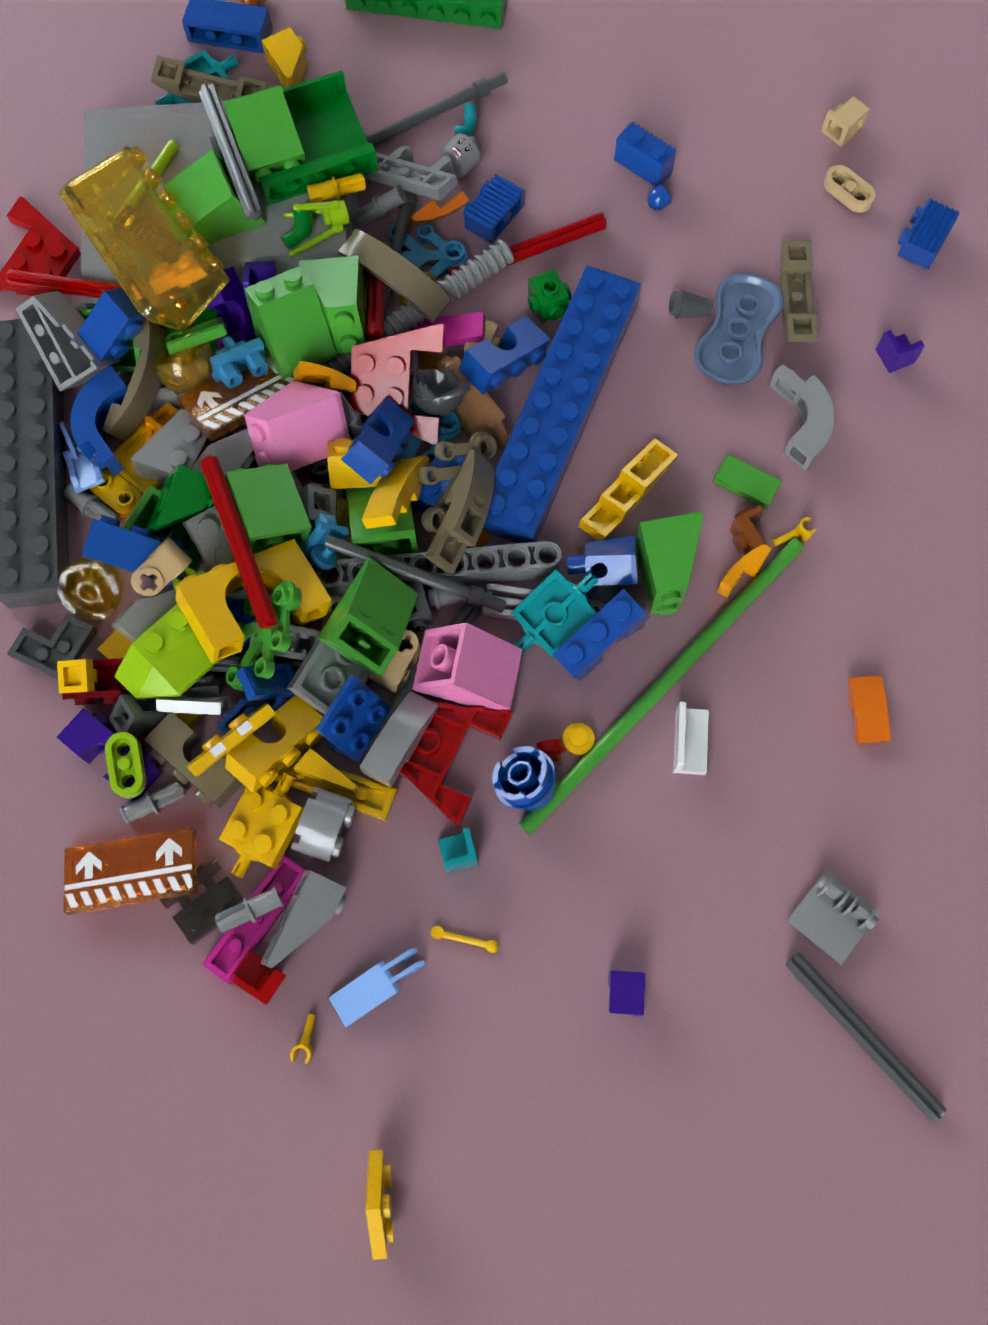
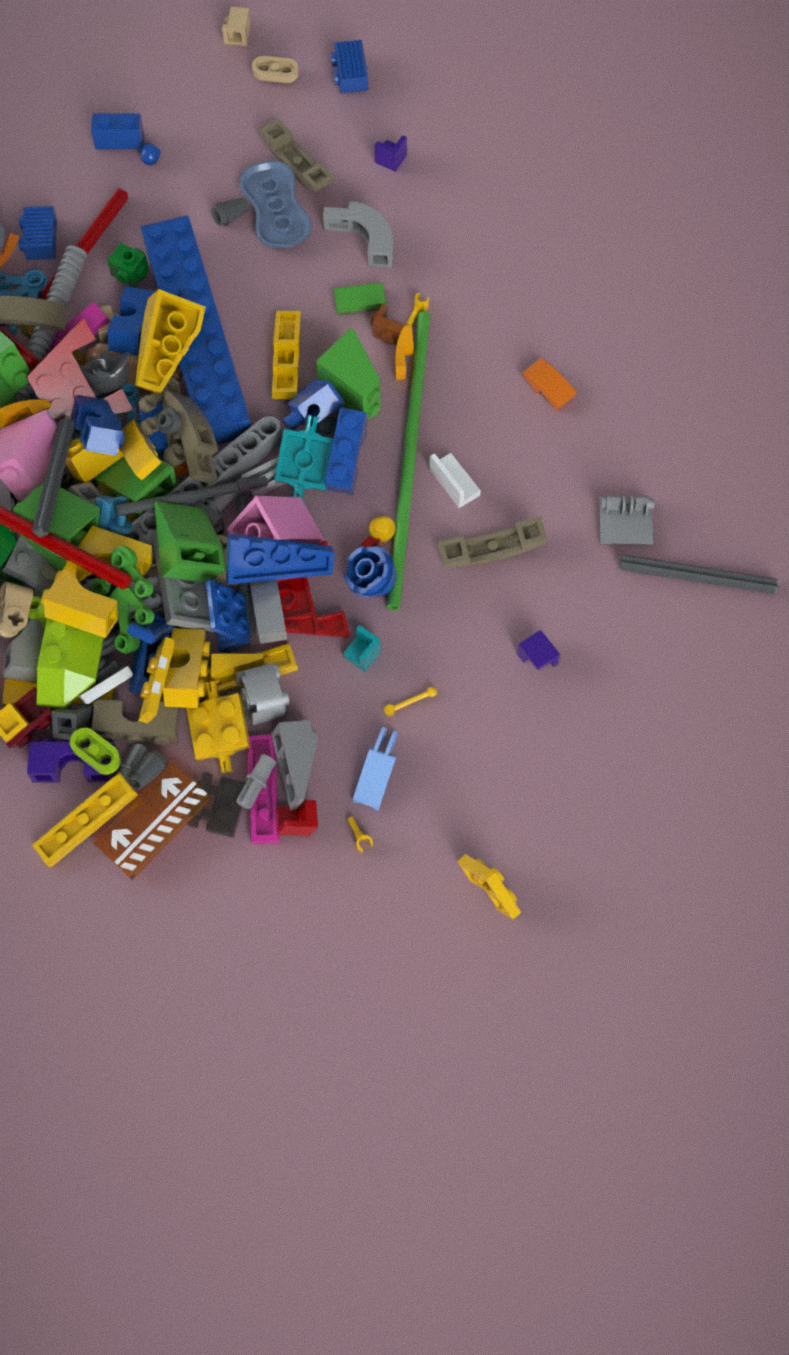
camera: 40 degrees left, 5 degrees down
(74, 821) = (85, 820): none -> yellow tile
(165, 817) = (148, 769): none -> dark grey cone
(289, 466) = (53, 477): none -> dark grey axle
(432, 697) = (273, 559): none -> blue wing
(449, 483) = (169, 421): none -> dark grey plate
(518, 393) = (166, 334): none -> yellow wedge
(673, 840) = (493, 546): none -> dark tan slope

